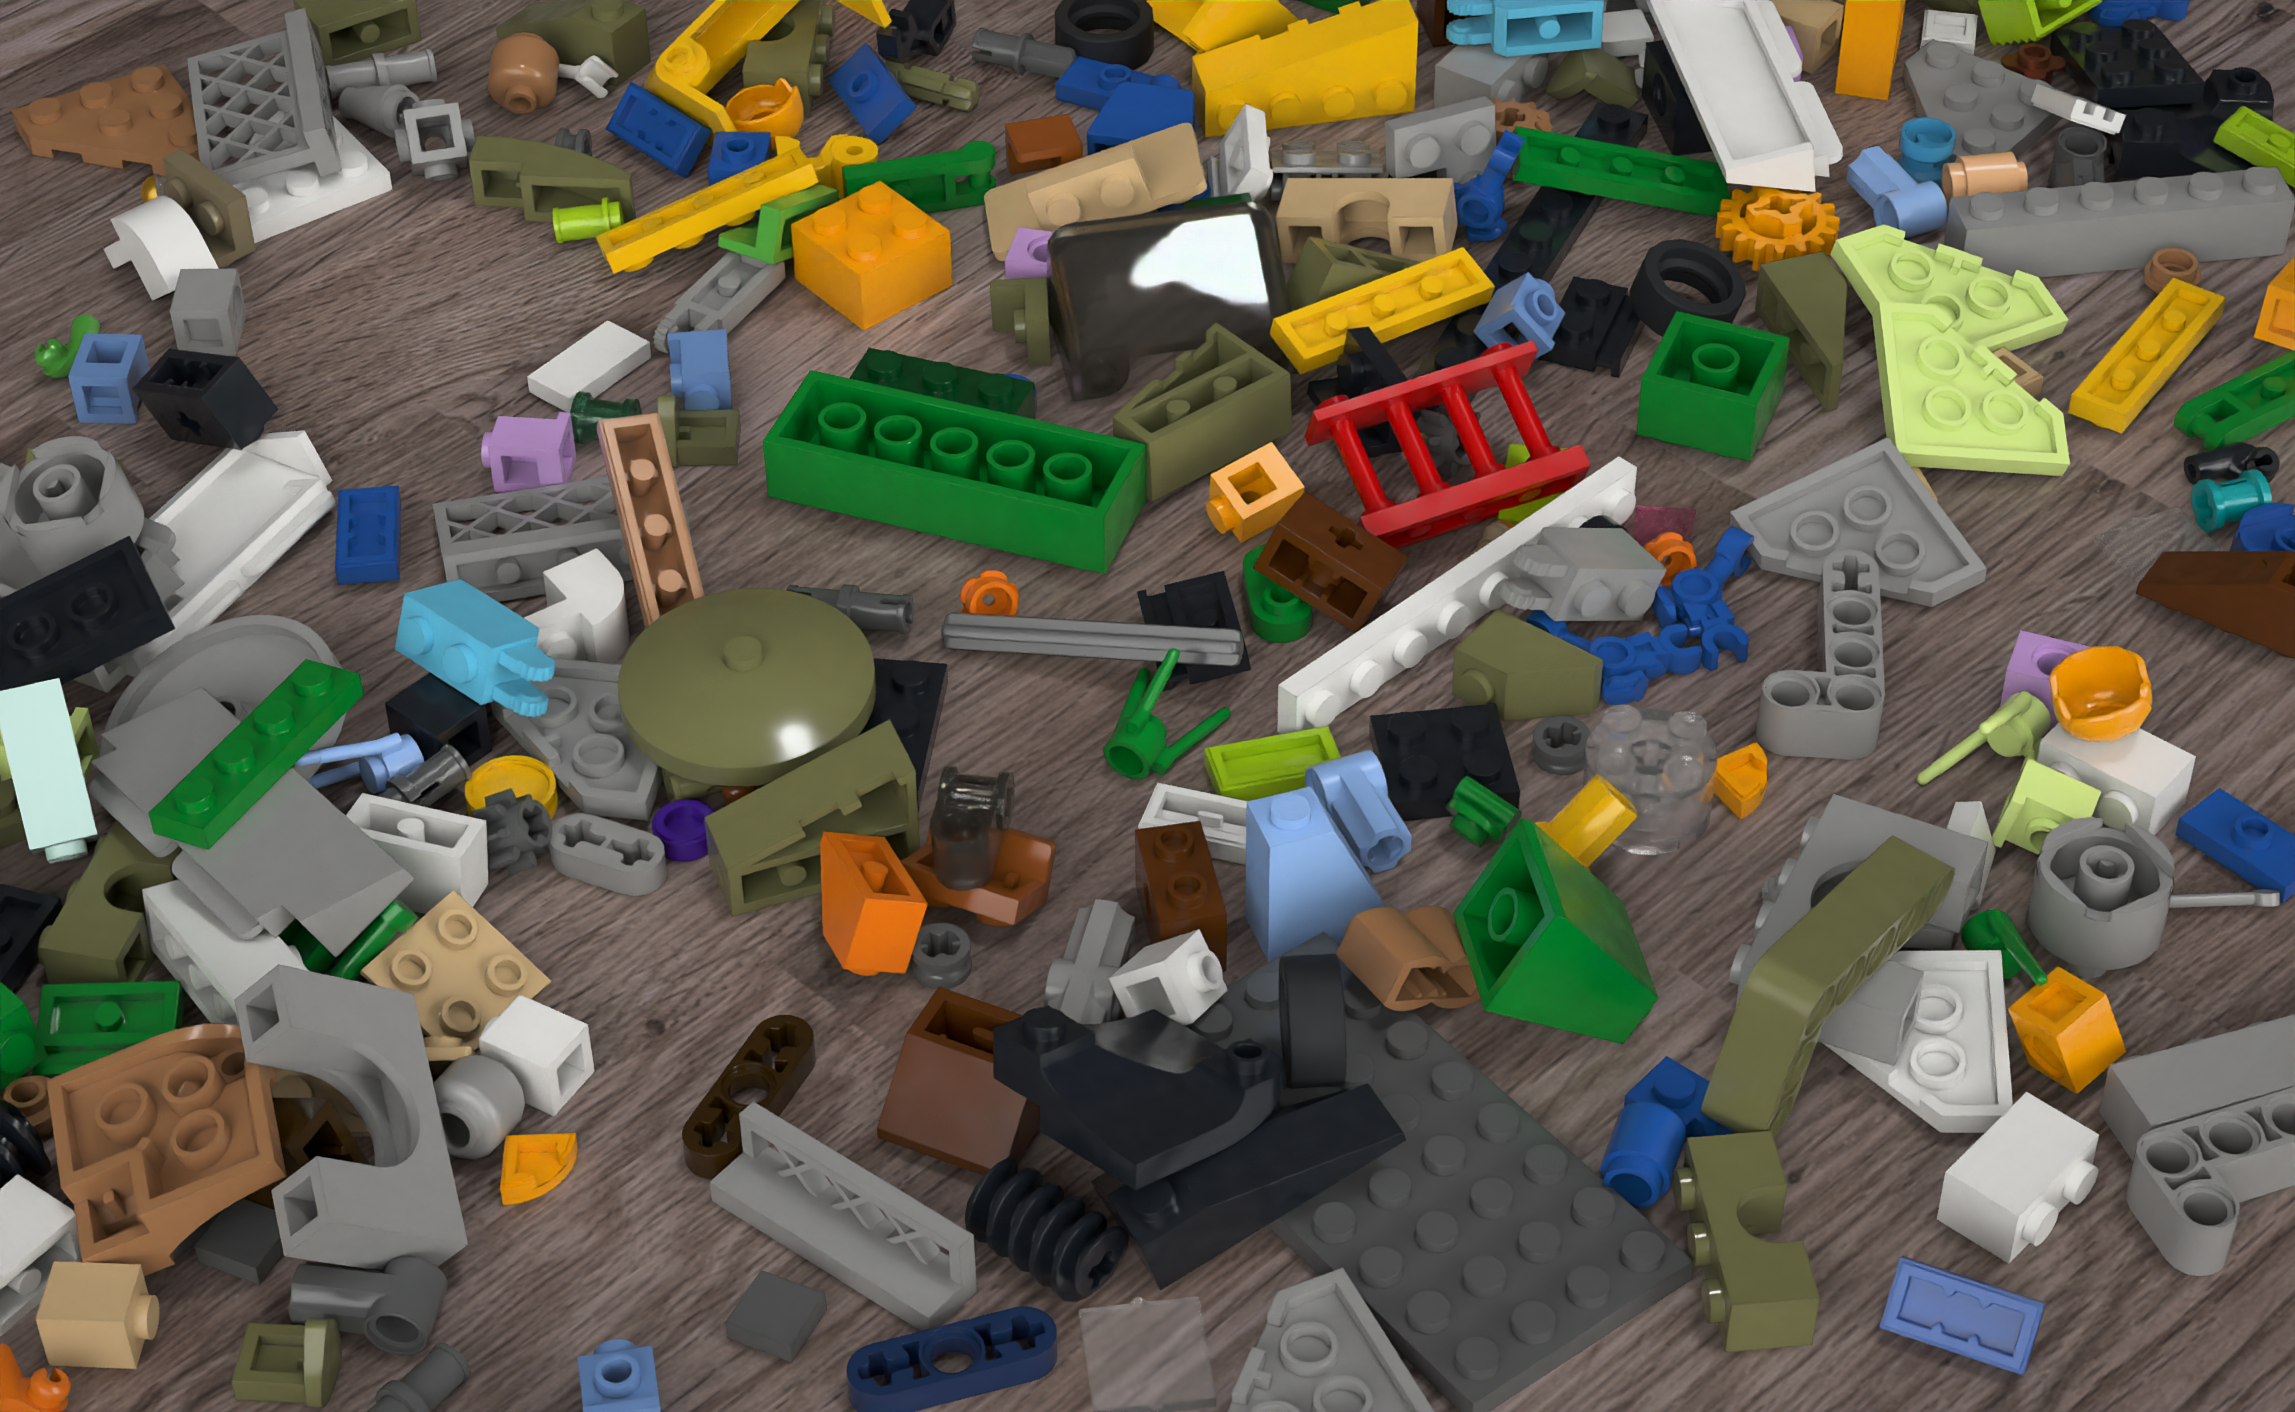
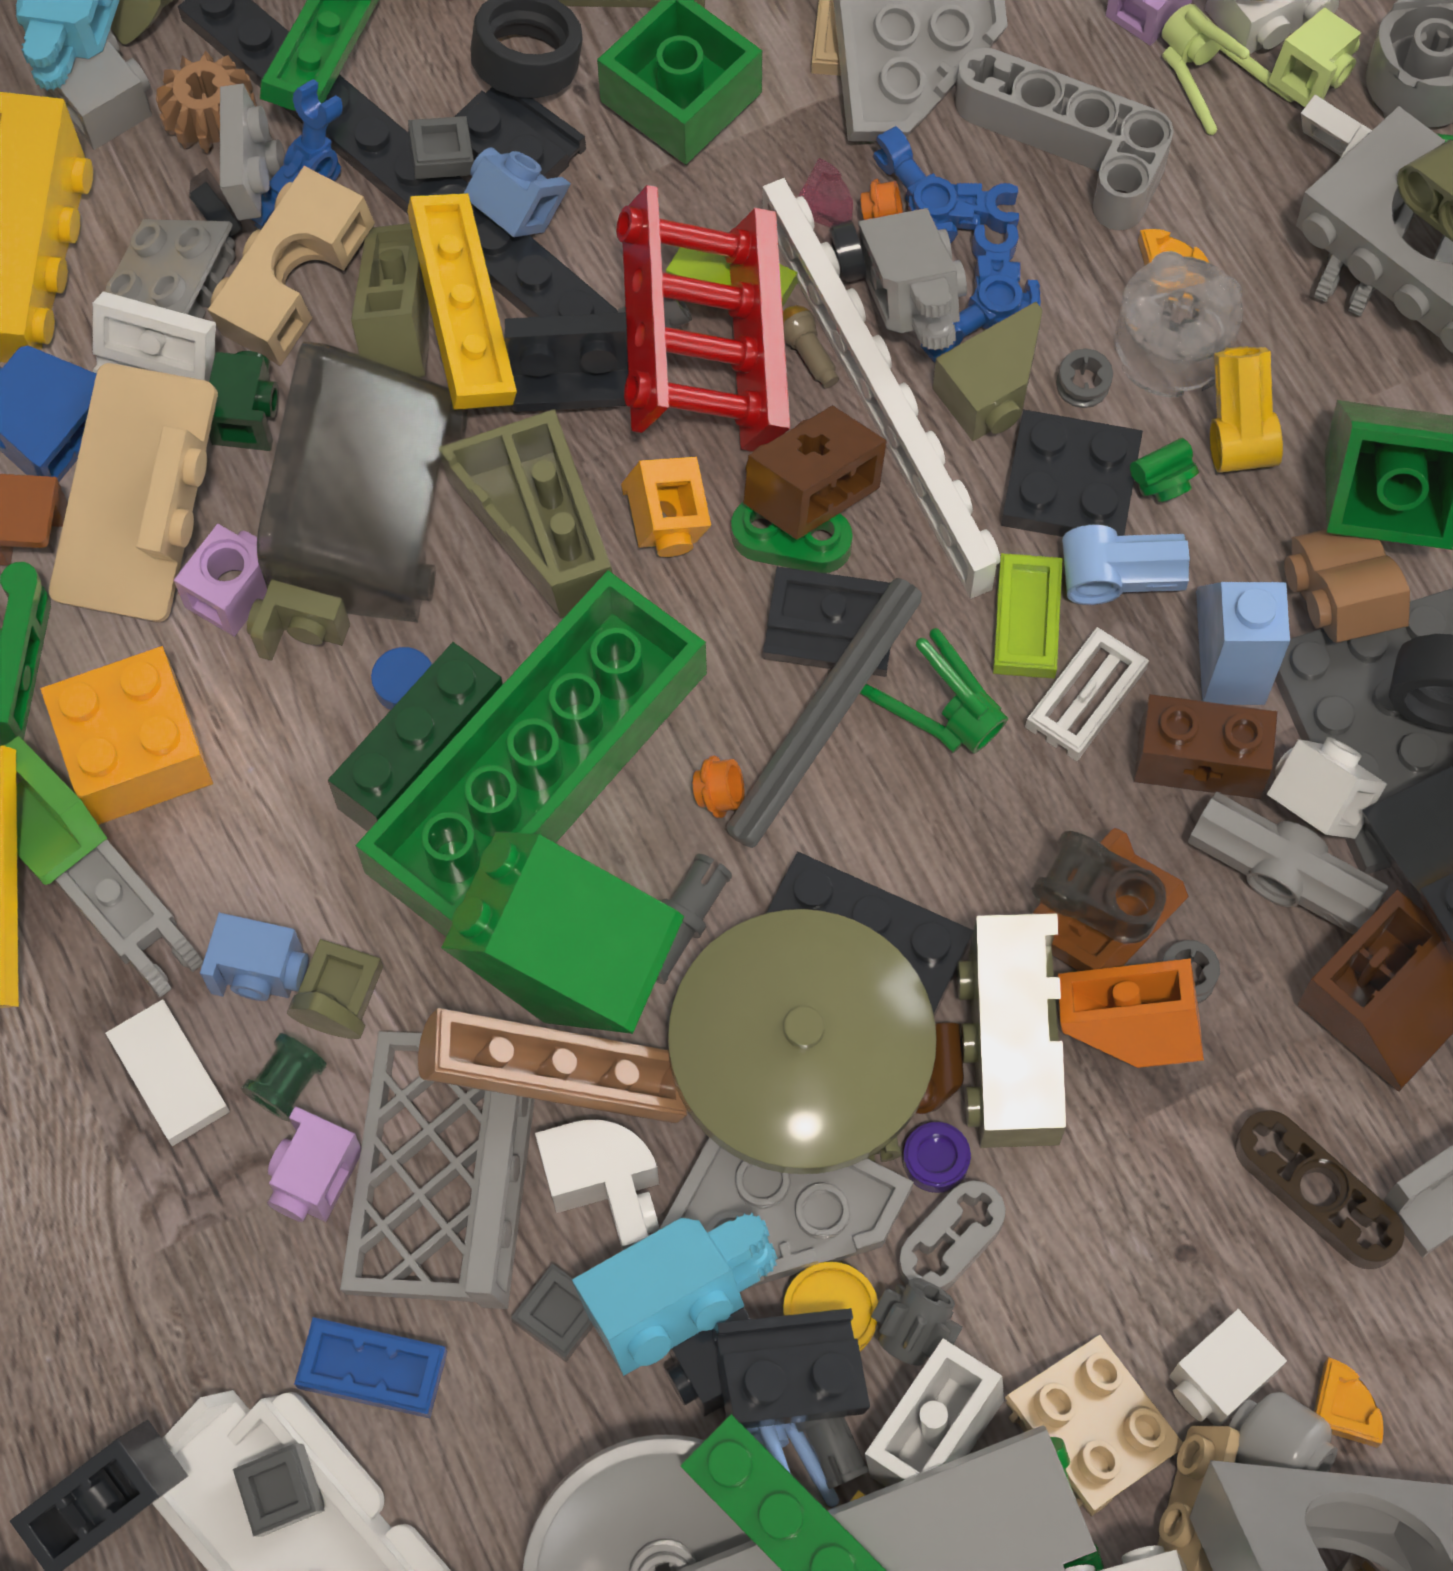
camera: 70 degrees left, 25 degrees up
(246, 505) = (278, 1490): none -> dark grey tile
(428, 738) = (791, 1368): none -> black plate
(778, 494) = (561, 934): none -> green slope
(1543, 261) = (440, 147): none -> dark grey tile

